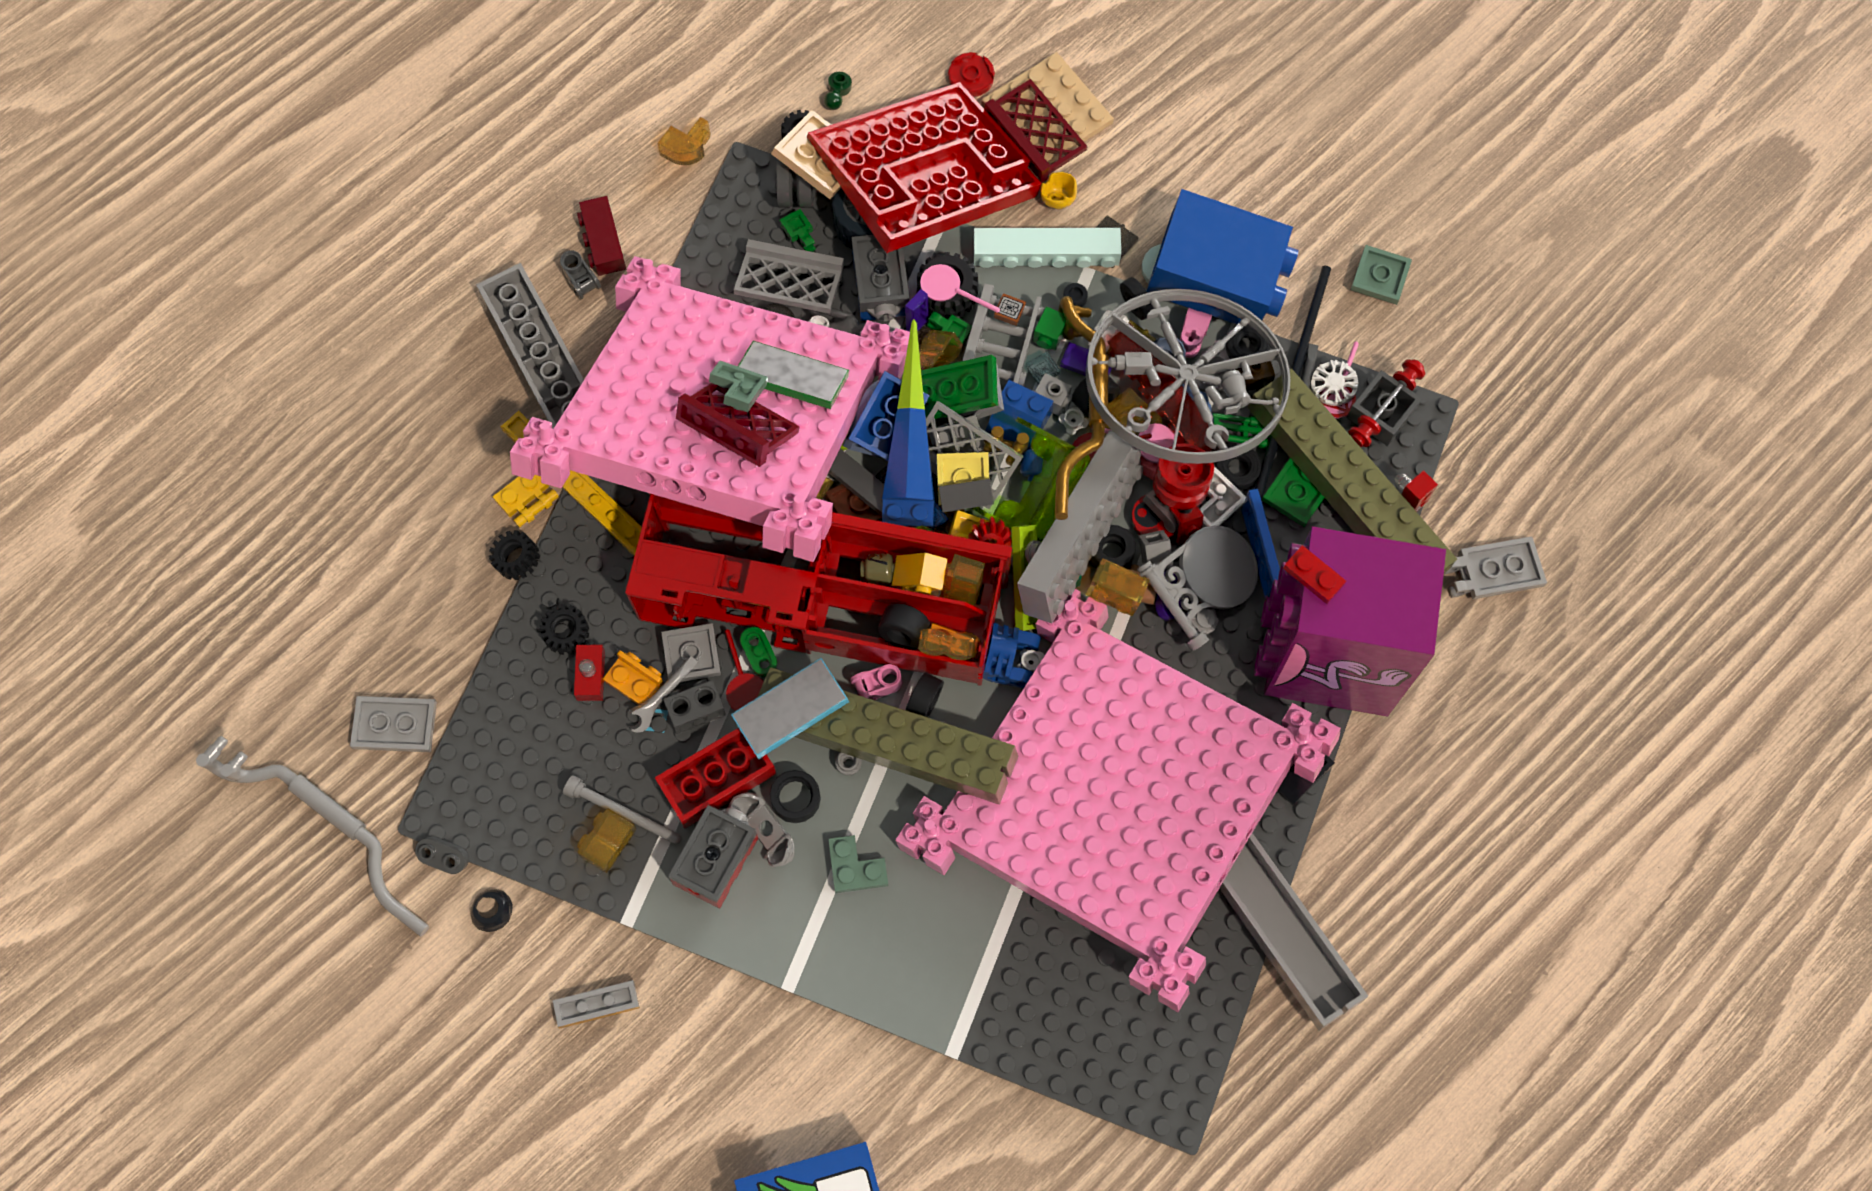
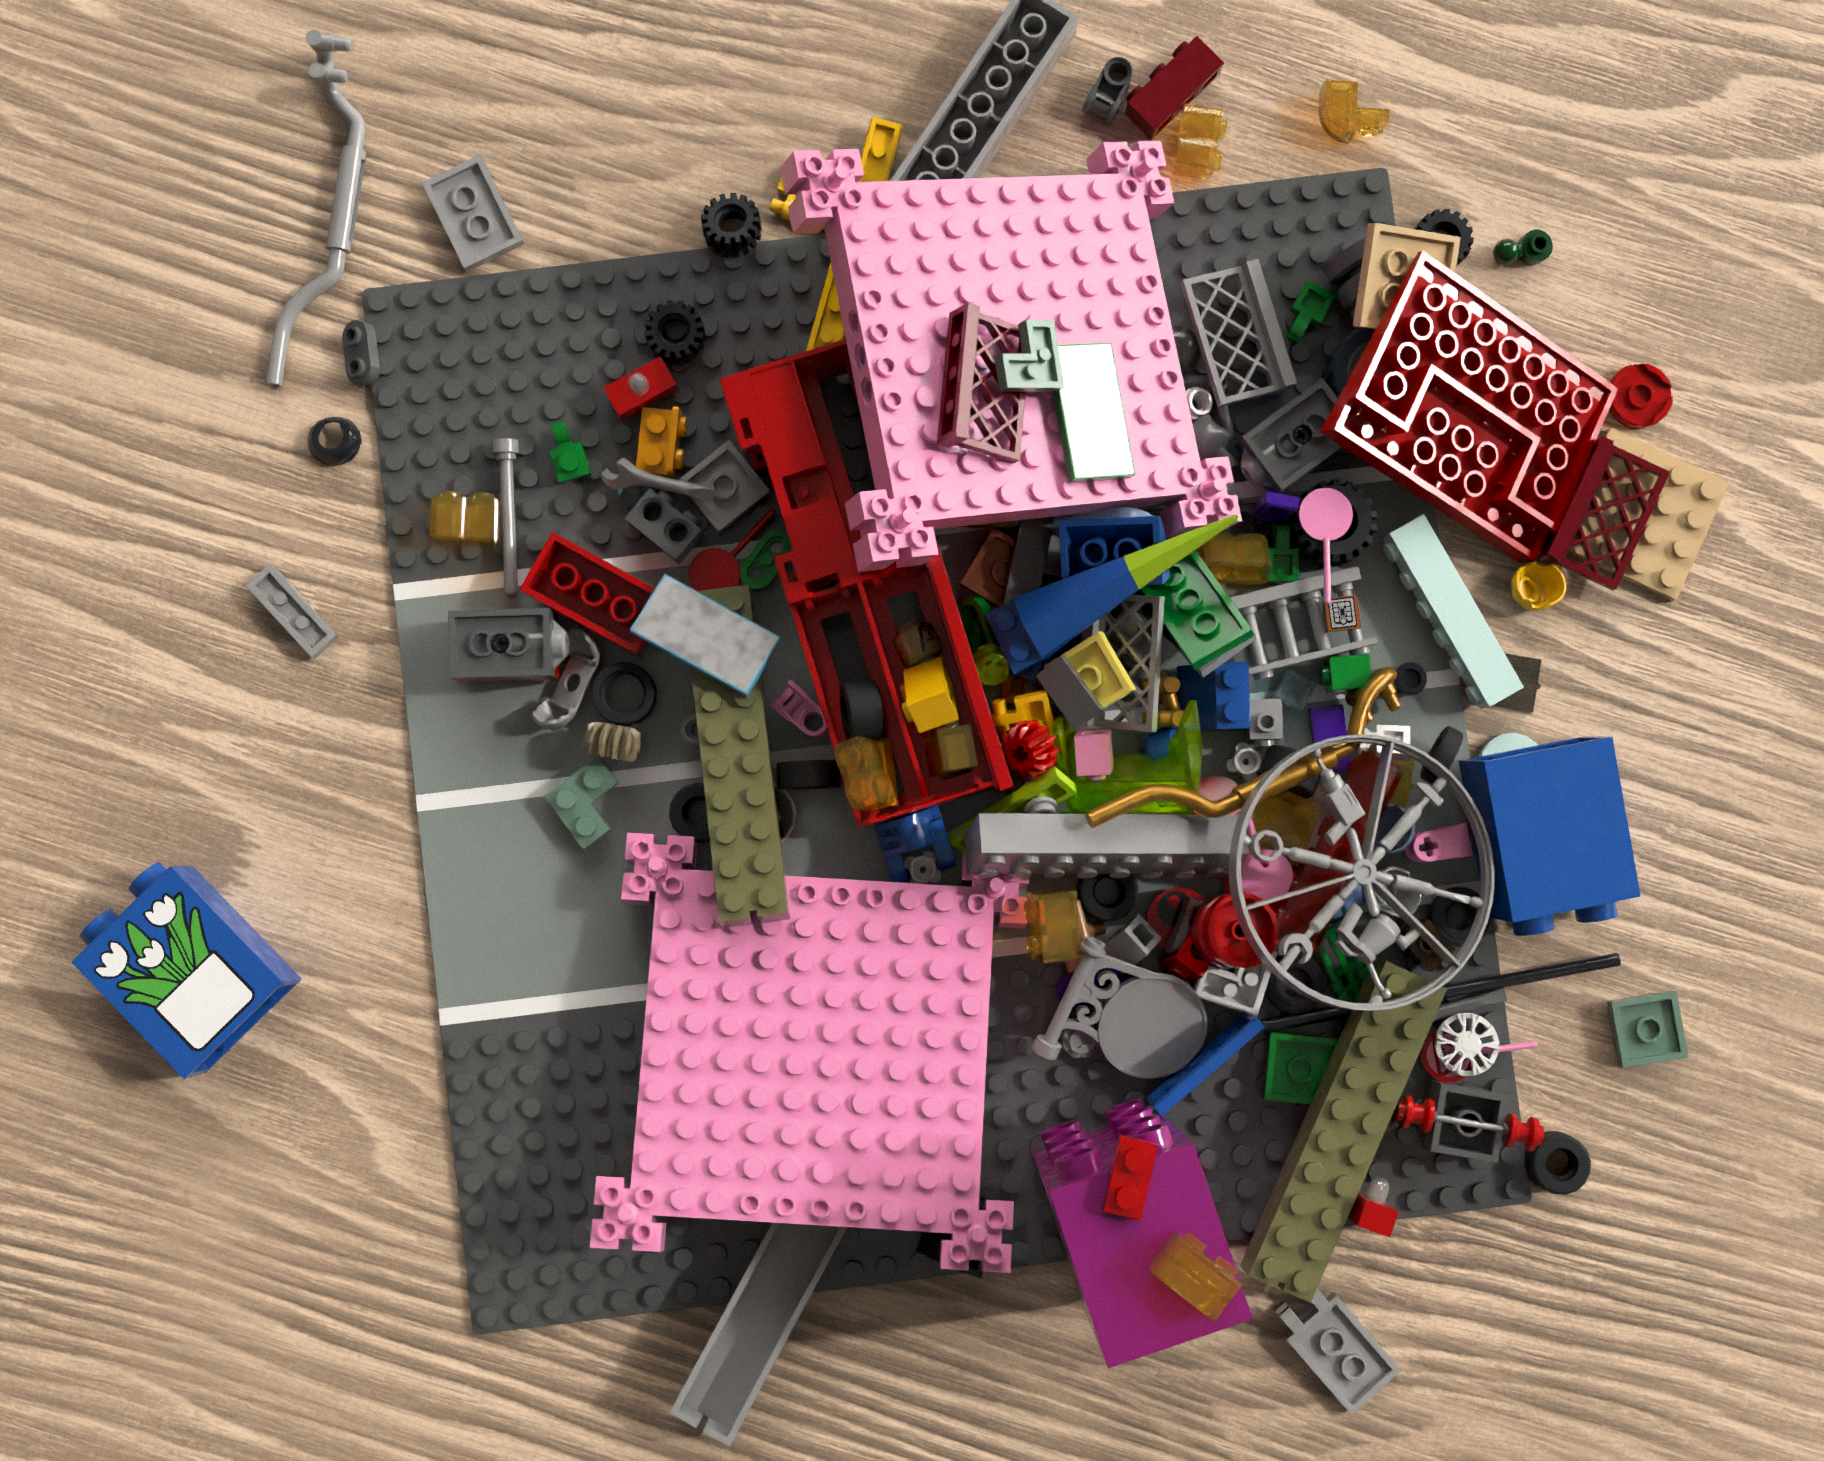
camera: 60 degrees right, 15 degrees up
(608, 747) = (569, 459): none -> green plate
(646, 239) = (1198, 141): none -> clear yellow brick
(825, 819) = (612, 742): none -> dark tan gear
(898, 802) = (679, 809): none -> black tyre
(1015, 505) = (1093, 753): none -> bright pink brick
(1399, 565) = (1195, 1275): none -> clear yellow brick
(1448, 359) = (1576, 1172): none -> black tyre

